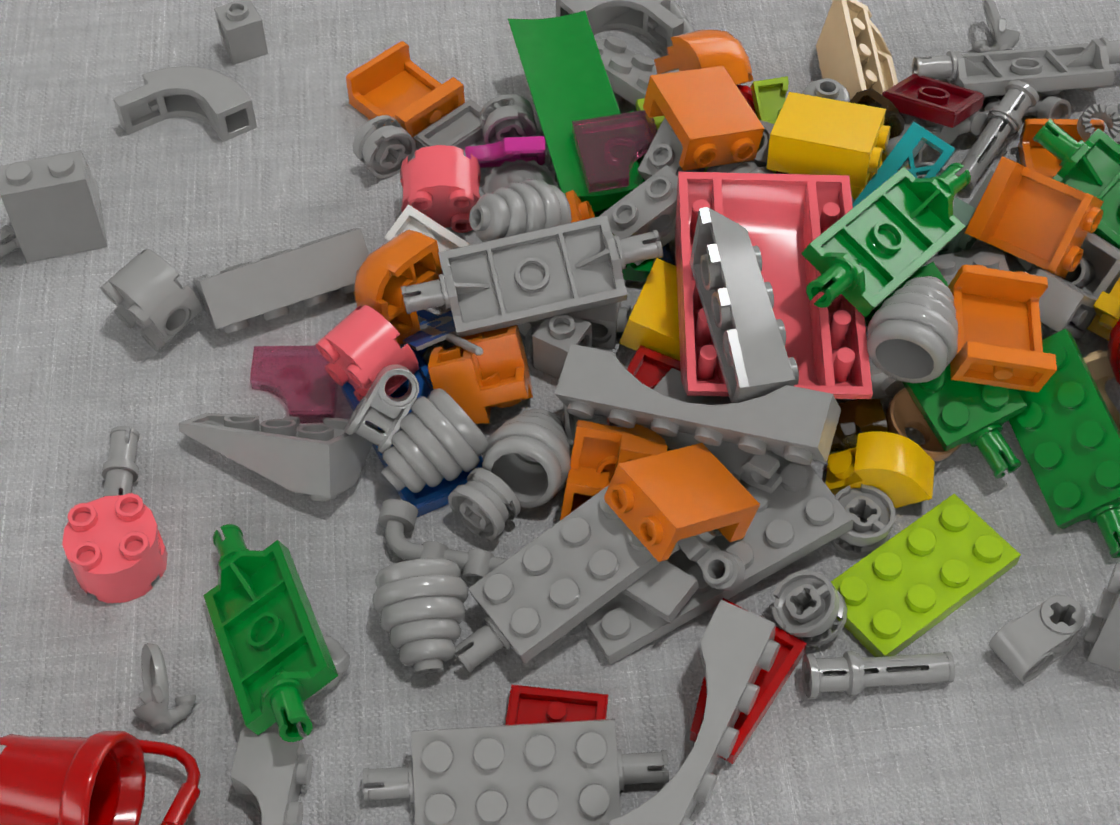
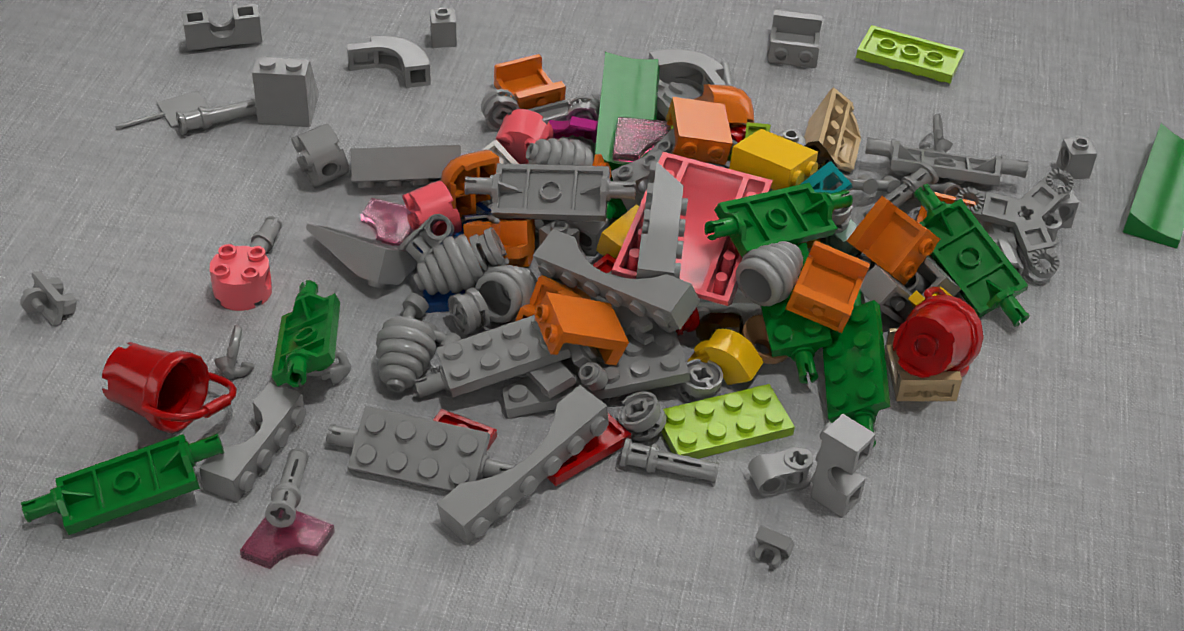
camera: 15 degrees right, 10 degrees down
(488, 398) = (488, 249): none -> light grey wheel
(934, 100) = (866, 163): dark red tile -> none
(1084, 763) = (774, 542): none -> light grey tile

